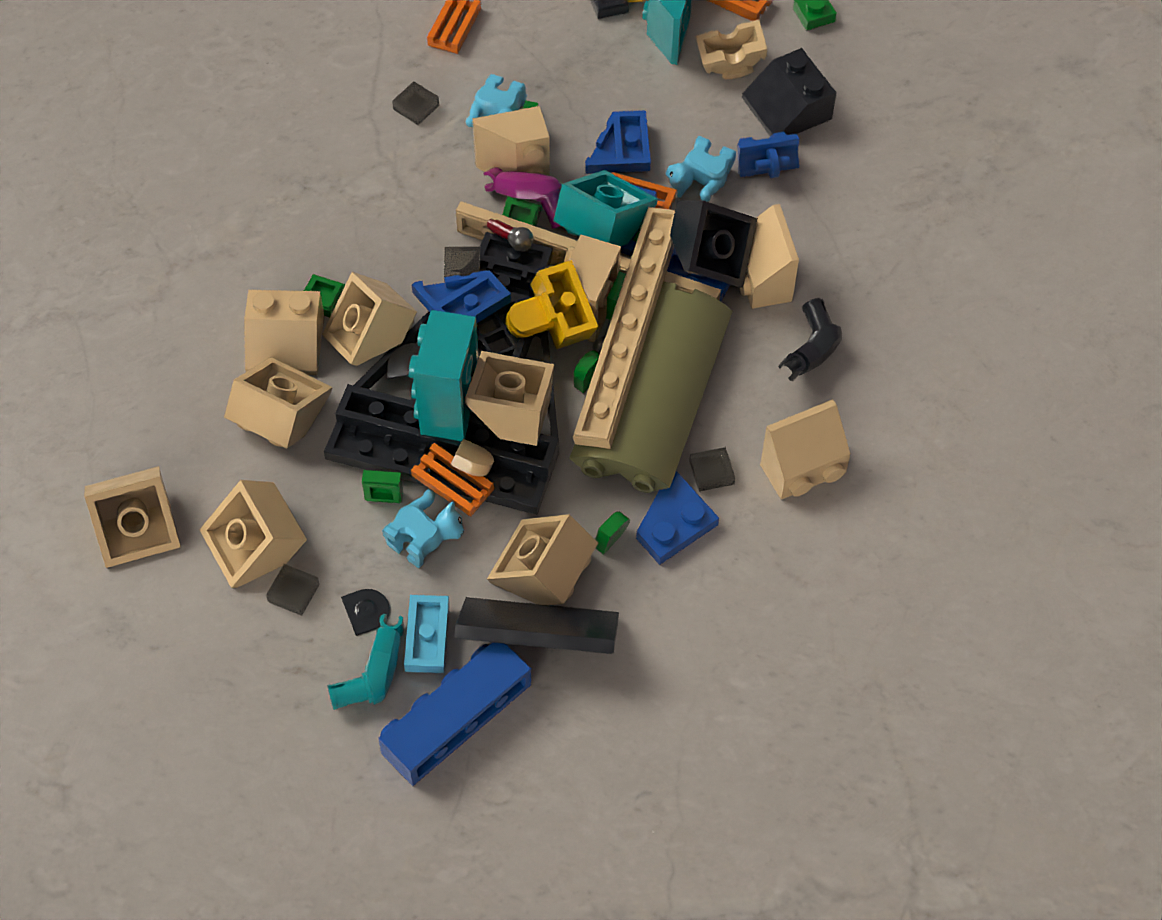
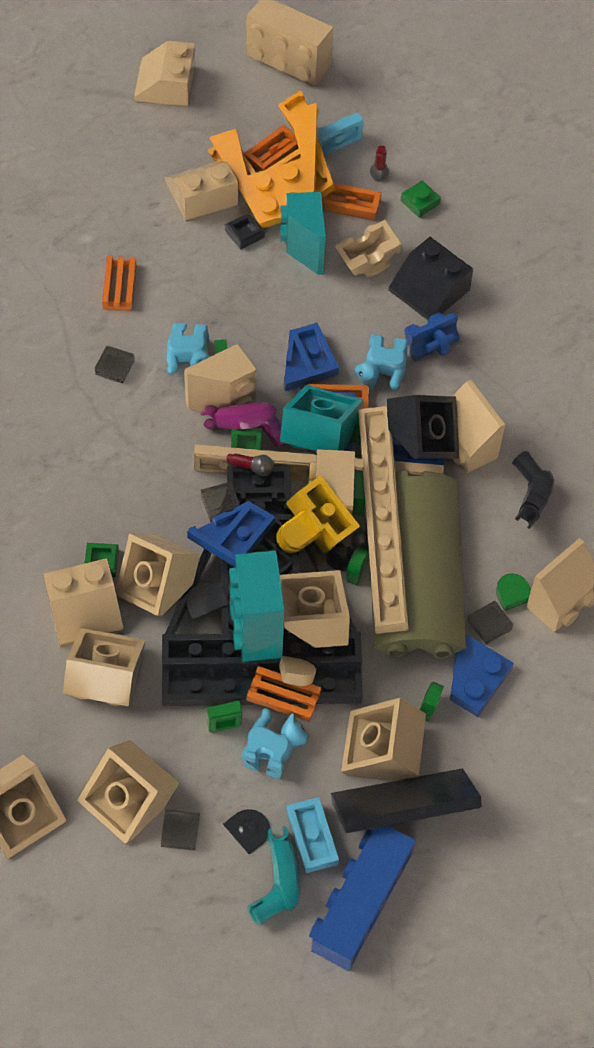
camera: 20 degrees left, 0 degrees up
(571, 356) = (334, 560): none -> black hinge
(748, 442) = (512, 591): none -> green tile

